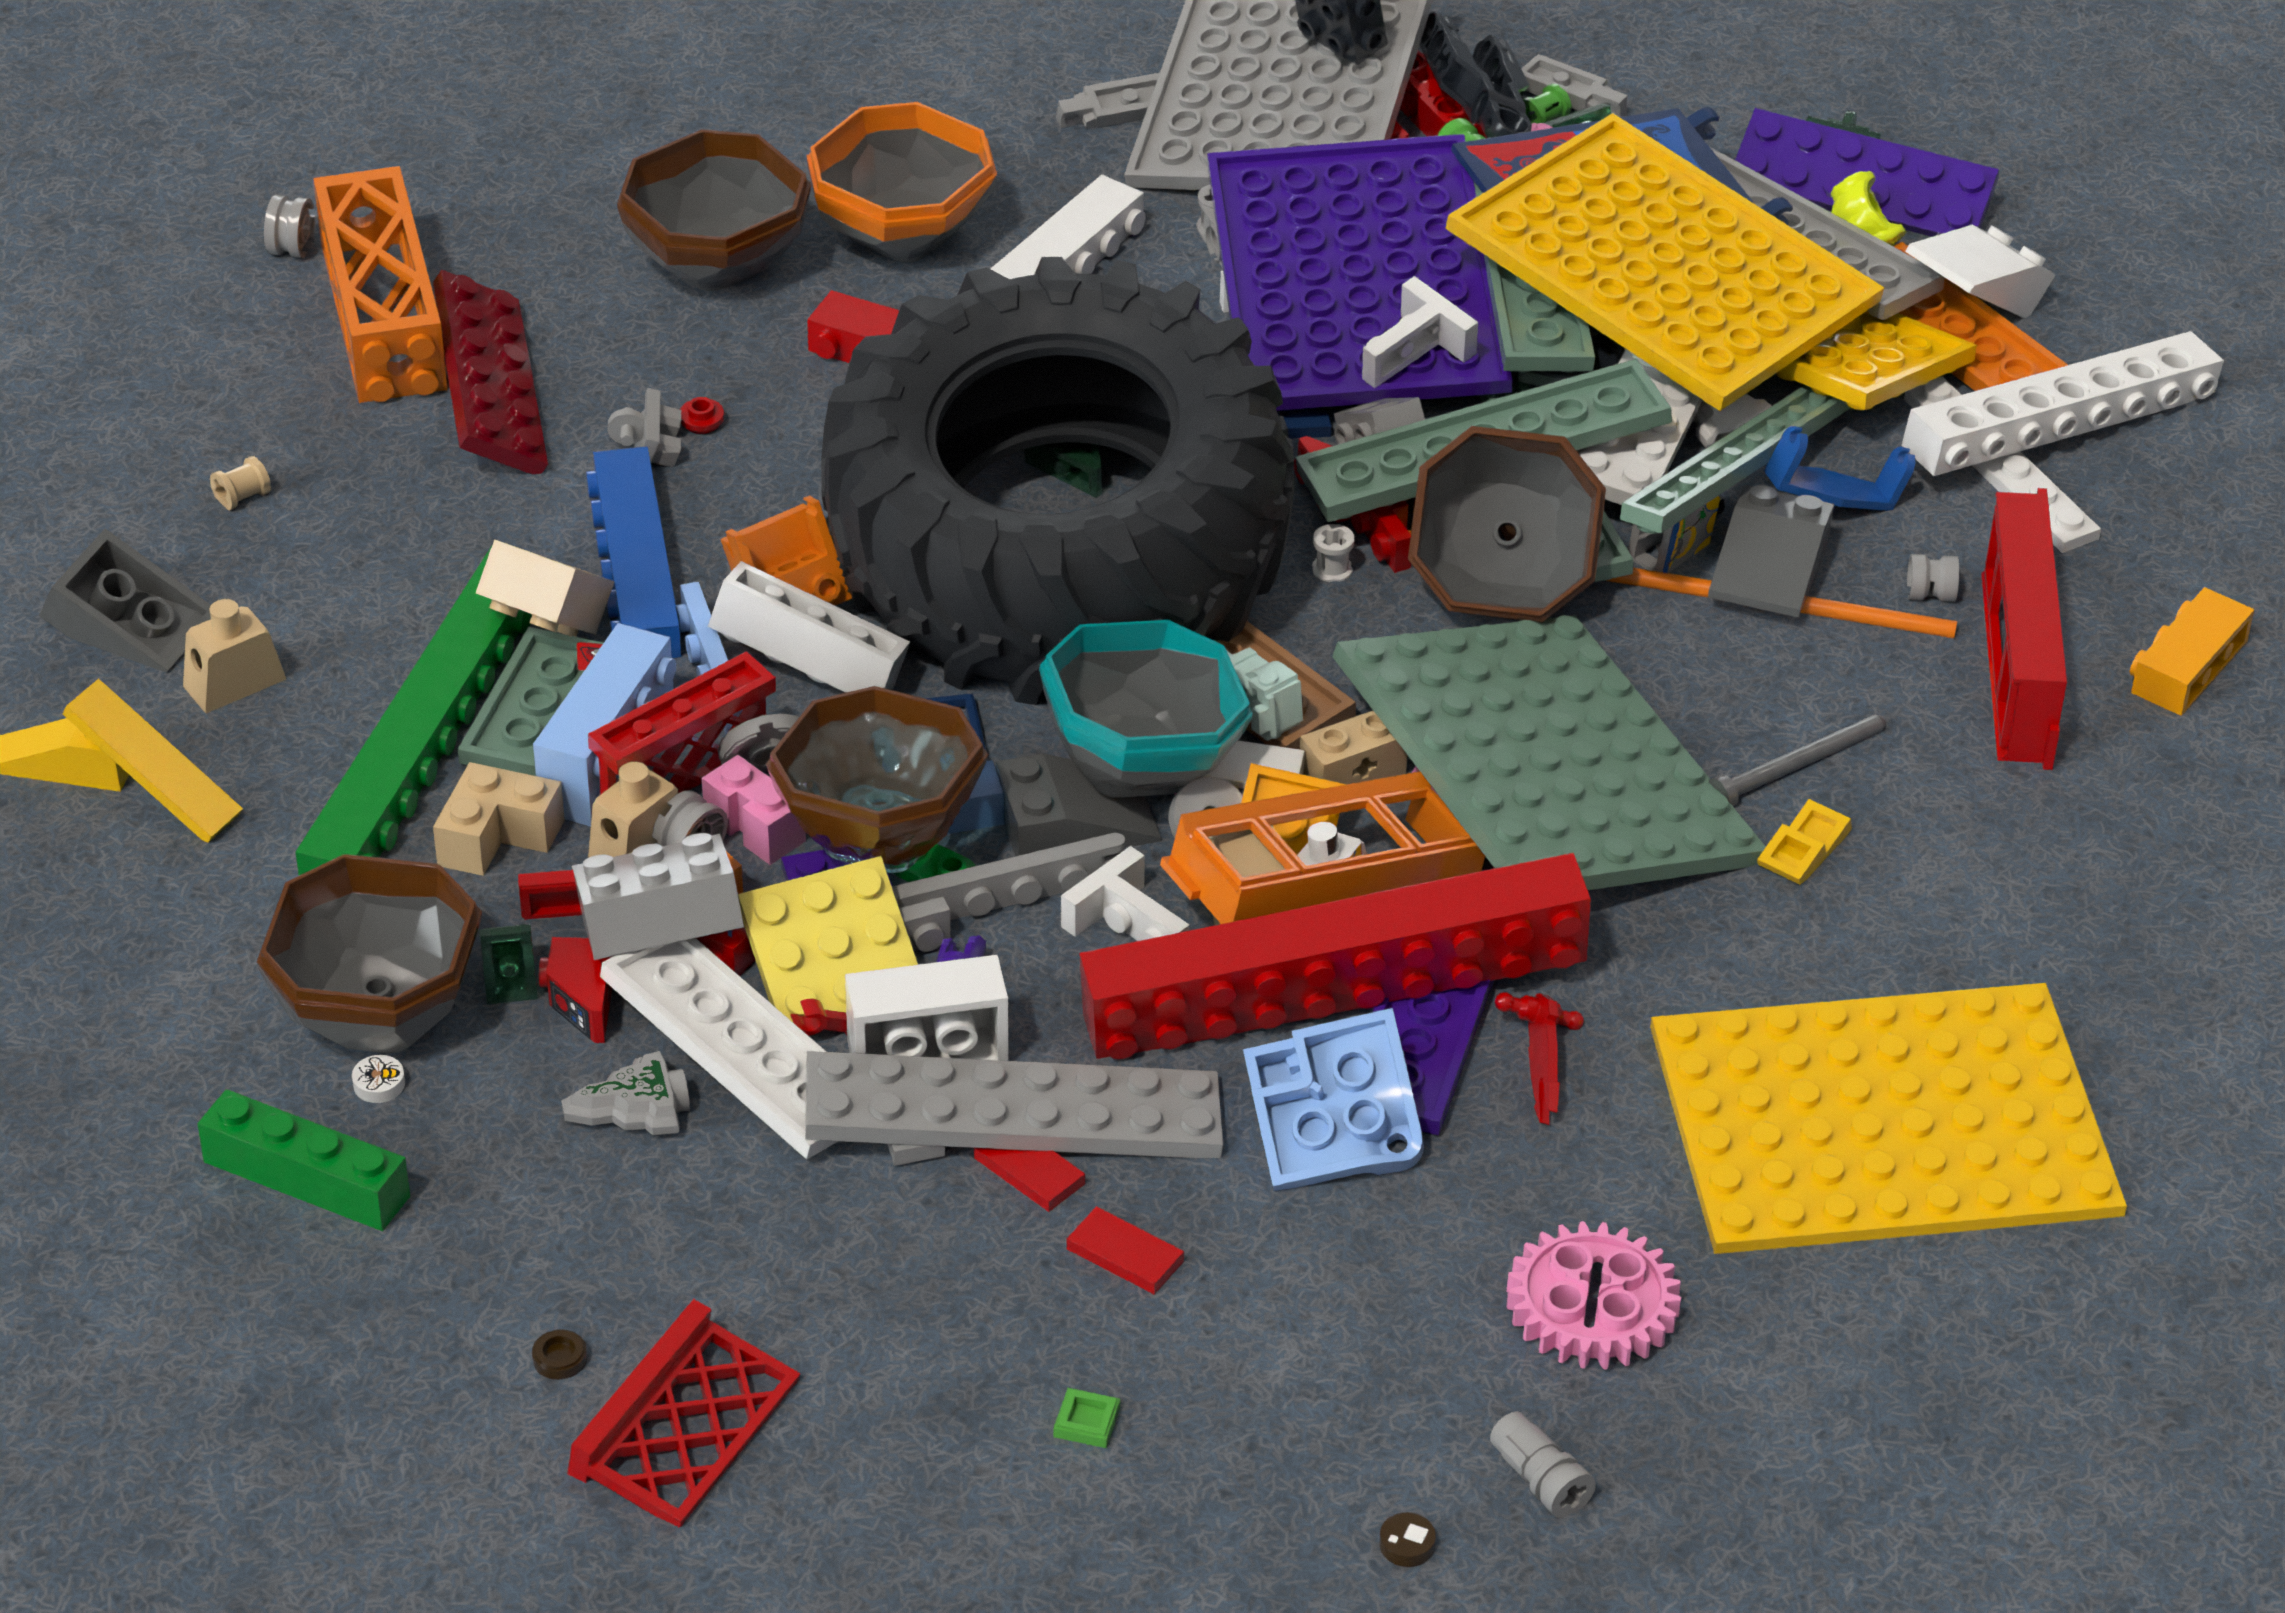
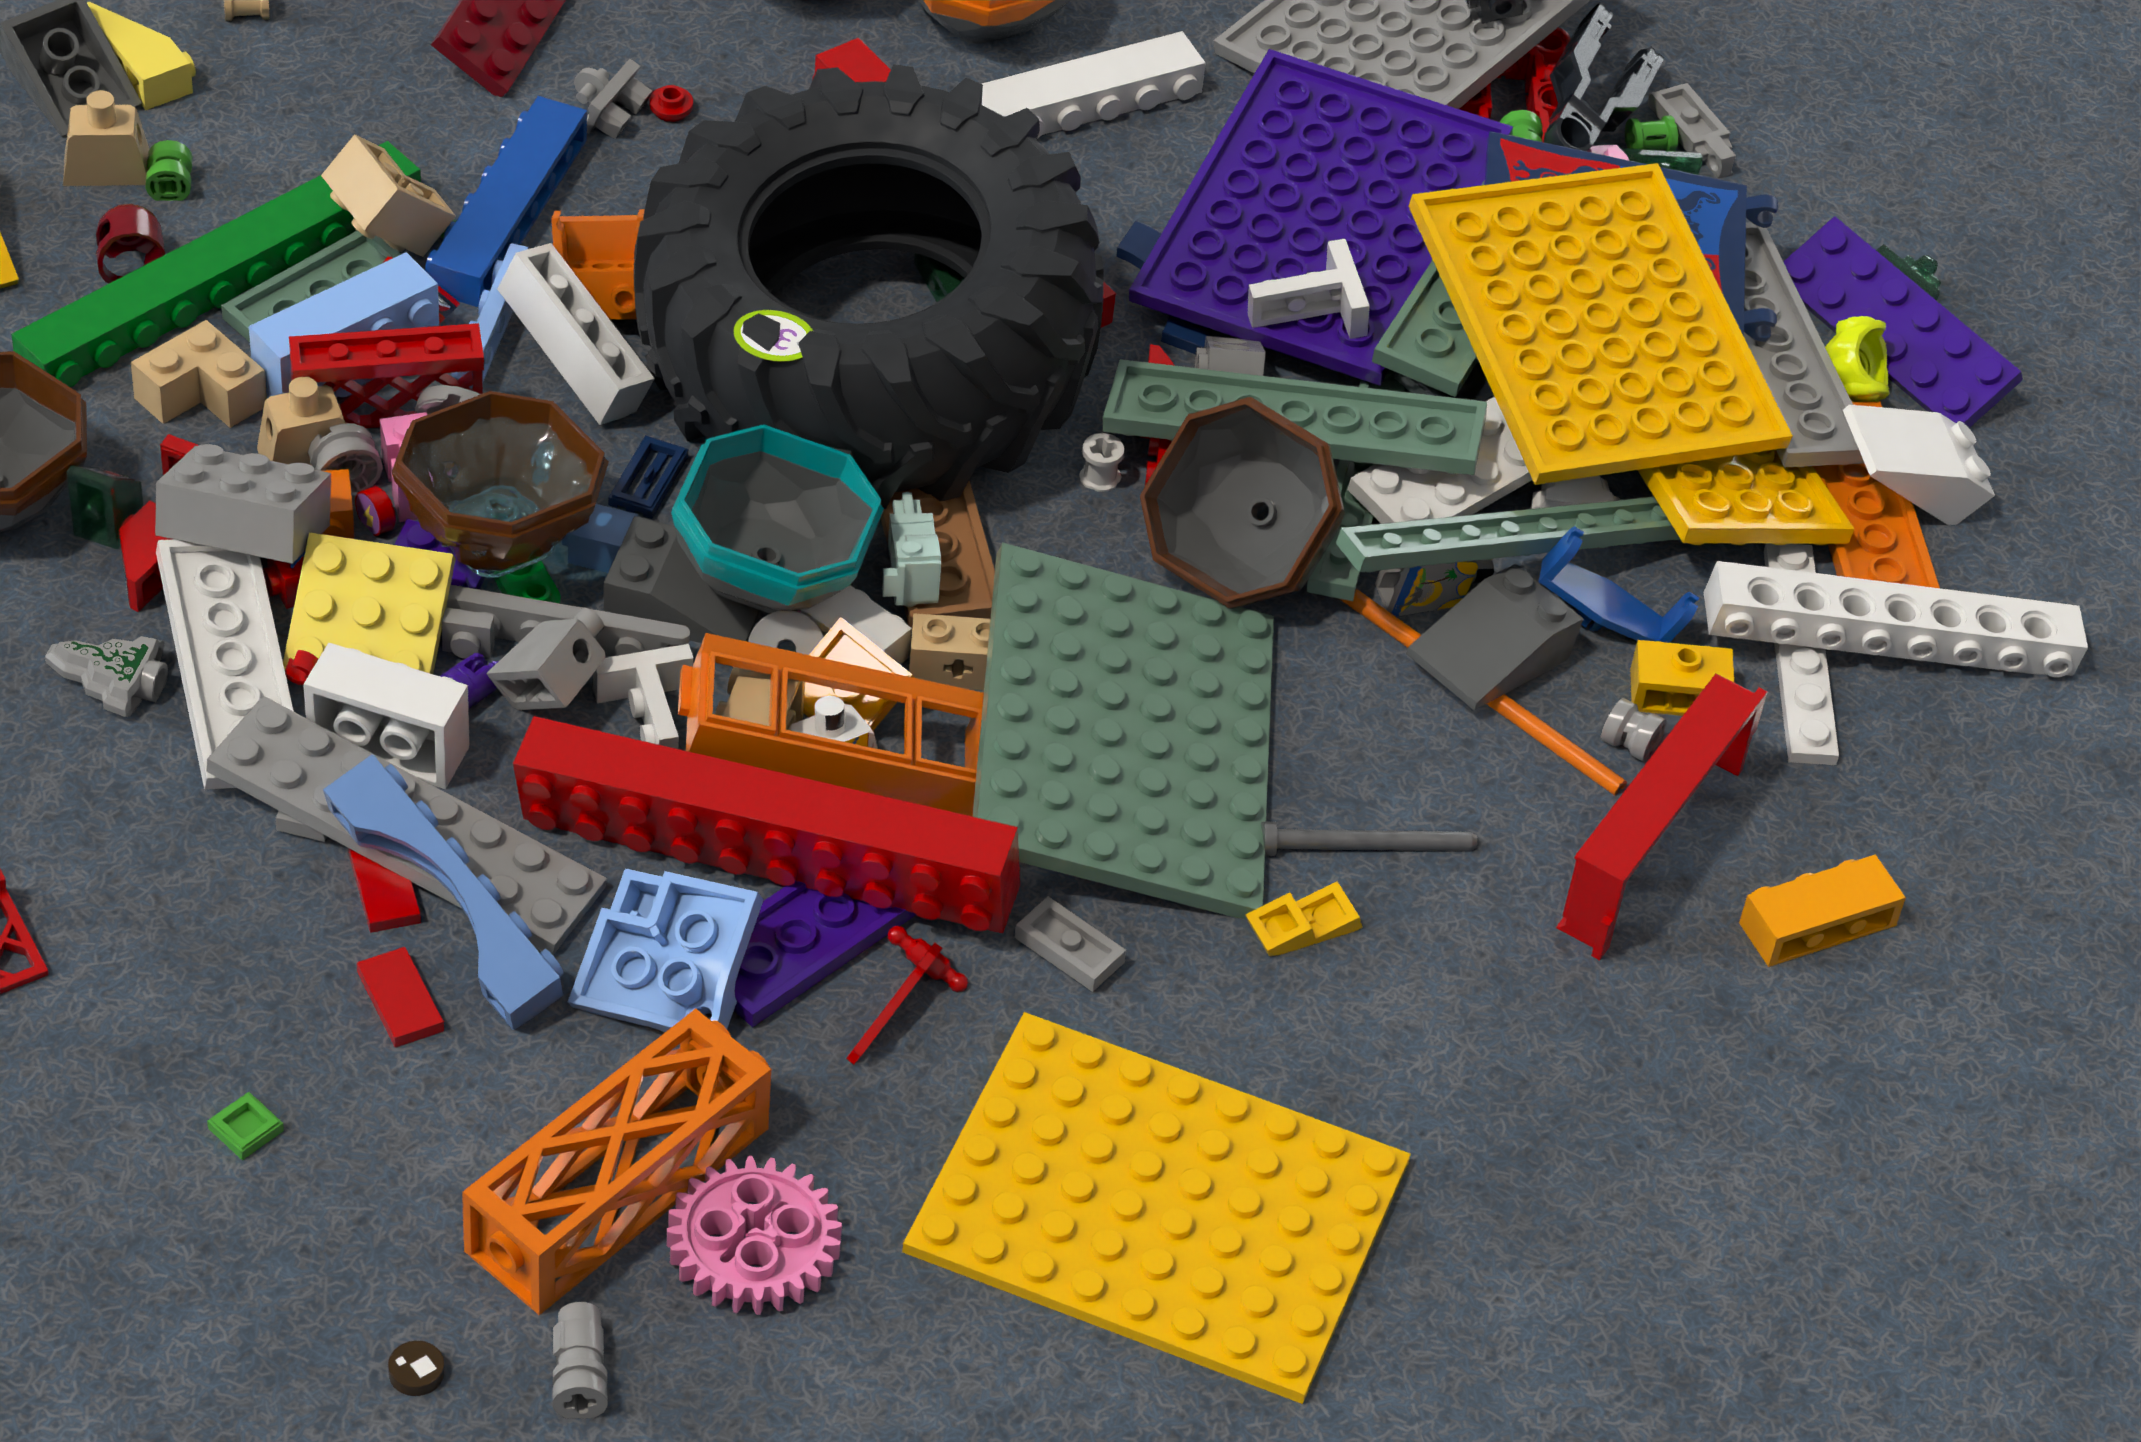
camera: 25 degrees right, 5 degrees up
(202, 565) = (148, 58): none -> light yellow slope
(304, 657) = (169, 171): none -> bright green wheel
(322, 718) = (127, 229): none -> dark red helmet
(755, 859) = (375, 510): none -> red tile
(1014, 1097) = (383, 817): none -> medium blue arch
(1029, 914) = (550, 663): none -> light grey torso
(1071, 530) = (791, 333): none -> sticker
(1448, 1386) = (503, 1231): none -> orange piece
(1640, 946) = (1070, 943): none -> light grey plate
(1937, 521) = (1672, 675): none -> yellow brick

